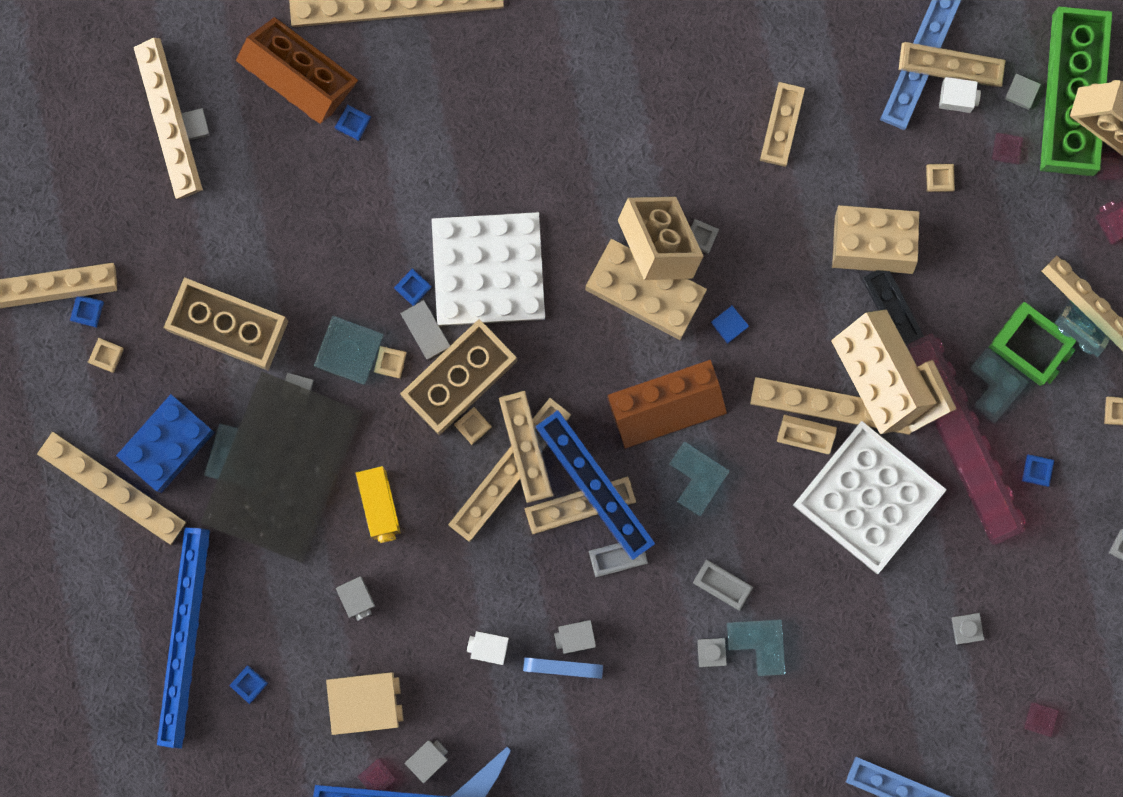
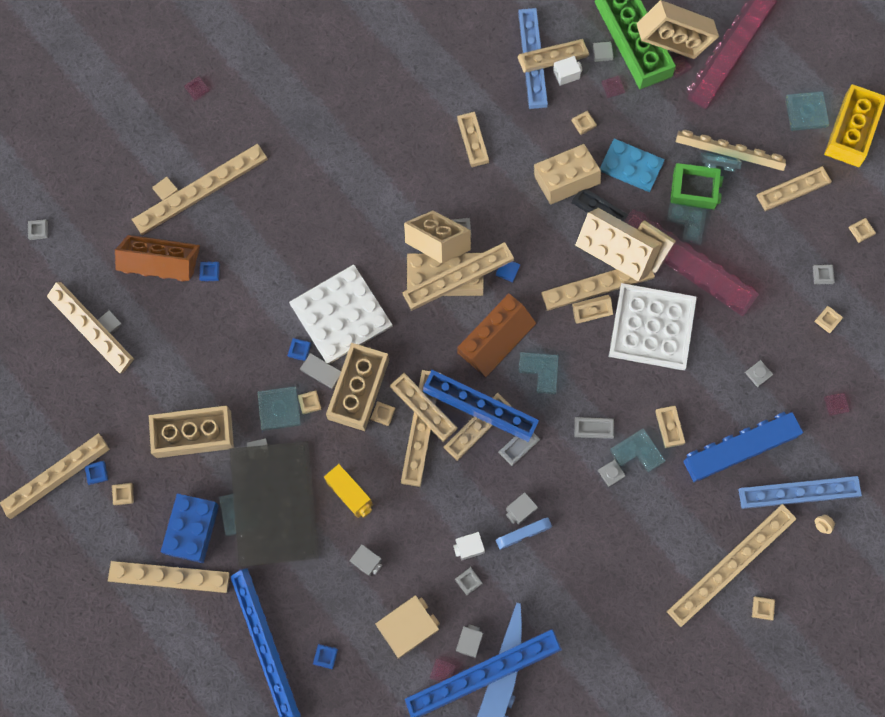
camera: 25 degrees left, 10 degrees down
(465, 688) = (468, 581): none -> light grey tile
(657, 306) = (458, 276): none -> tan plate
(816, 635) = (670, 426): none -> tan plate
(891, 709) = (742, 447): none -> blue brick
(968, 269) = (631, 165): none -> dark azure plate
(1037, 470) = (743, 258): blue tile -> none
(1096, 608) = (828, 319): none -> tan plate

